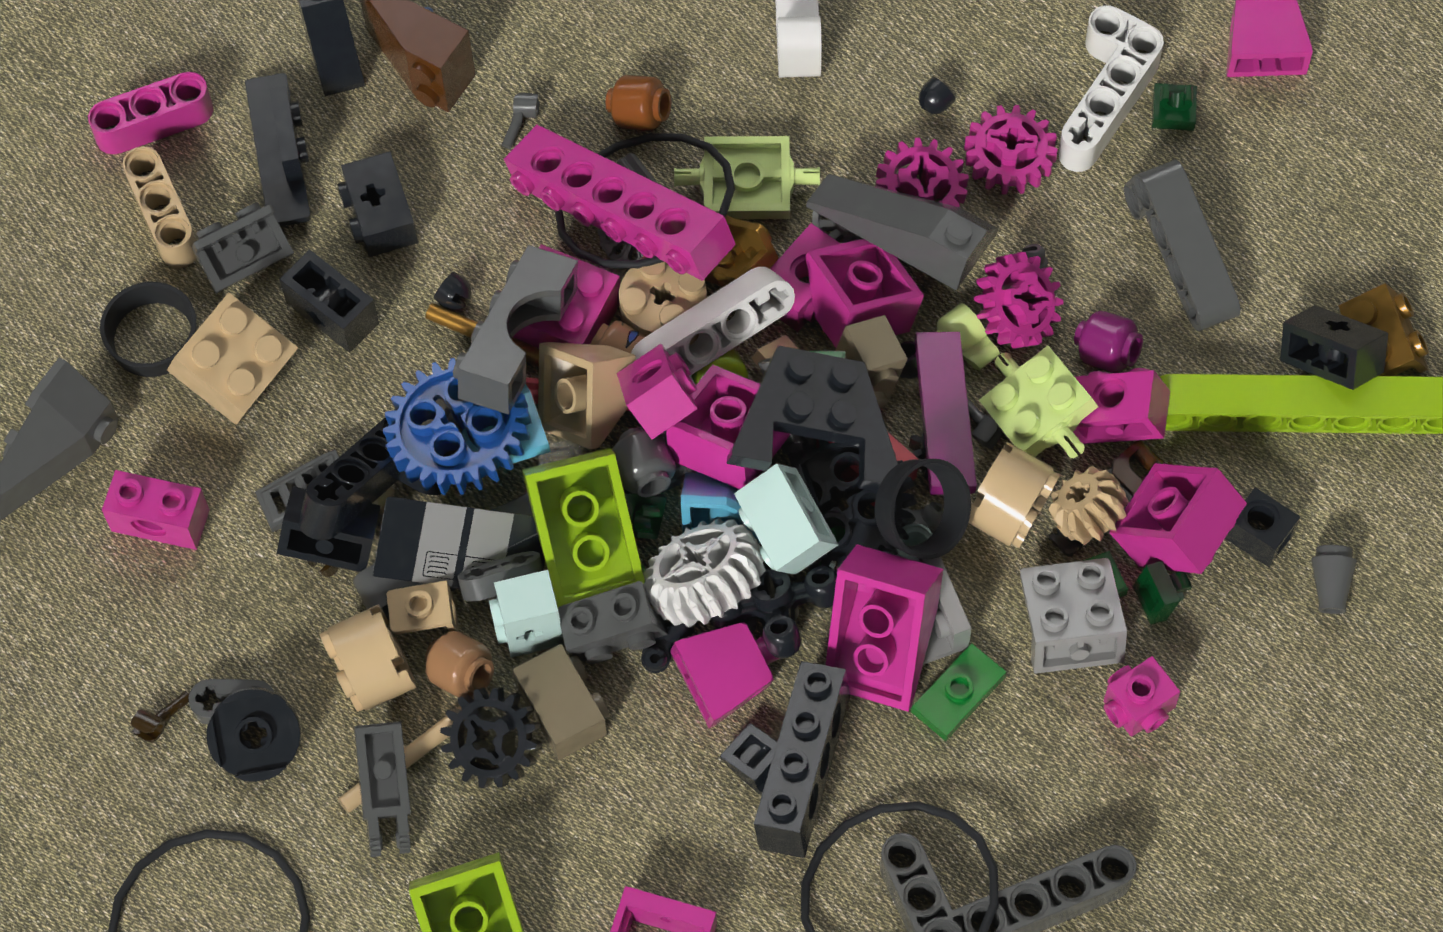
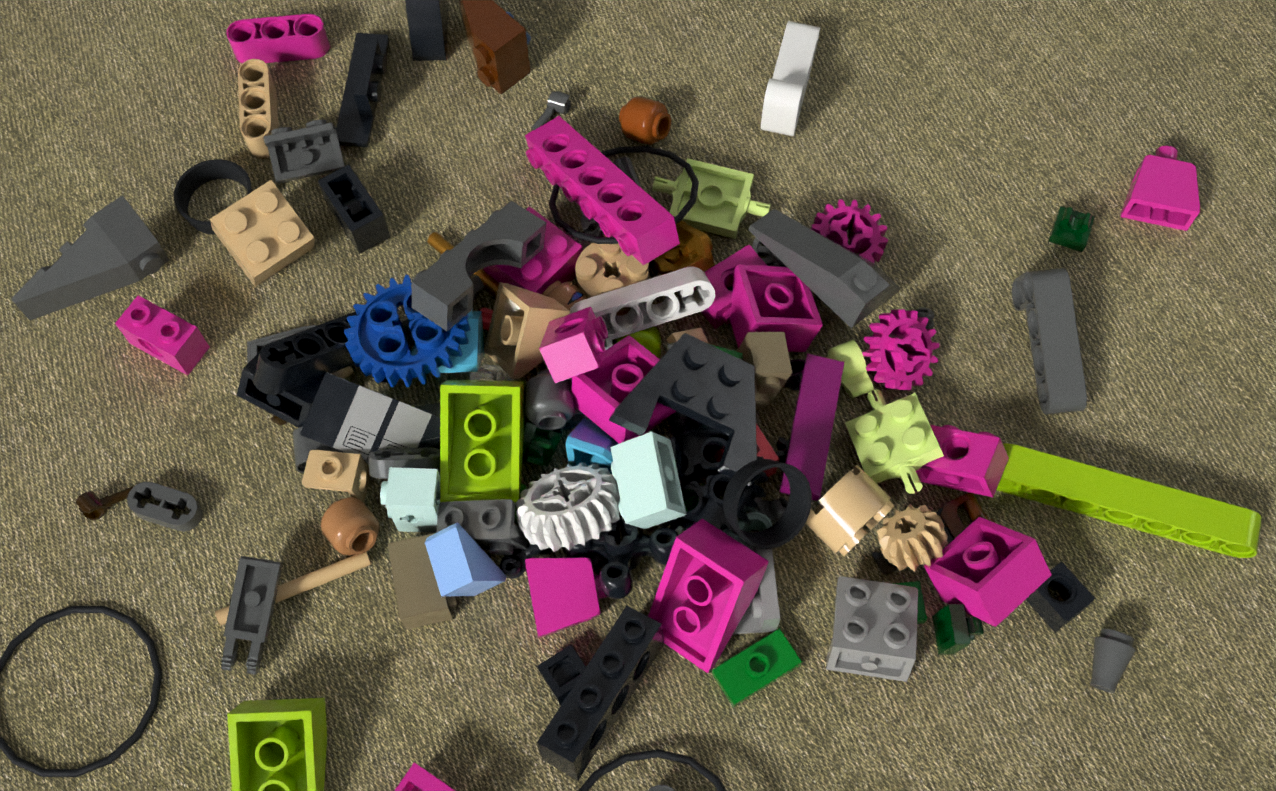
camera: 15 degrees right, 0 degrees up
(238, 755) = (149, 553): black plate -> none
(368, 659) = (276, 502): tan brick -> none
(373, 183) = (420, 147): black brick -> none
(451, 290) = (453, 226): black hinge -> none
(503, 750) = (348, 599): black gear -> none
(603, 666) = (461, 563): none -> light blue slope
(935, 96) = (879, 173): black hinge -> none
(987, 430) = (844, 450): dark grey hand -> none
(990, 151) = (928, 228): dark pink gear -> none
(1106, 95) = (1045, 177): white beam -> none
(1108, 341) = (967, 403): magenta head -> none
(1140, 697) = (924, 717): dark pink brick -> none
(1334, 347) = (1161, 459): black brick -> none
(1391, 313) = (1204, 457): pearl gold bracket -> none

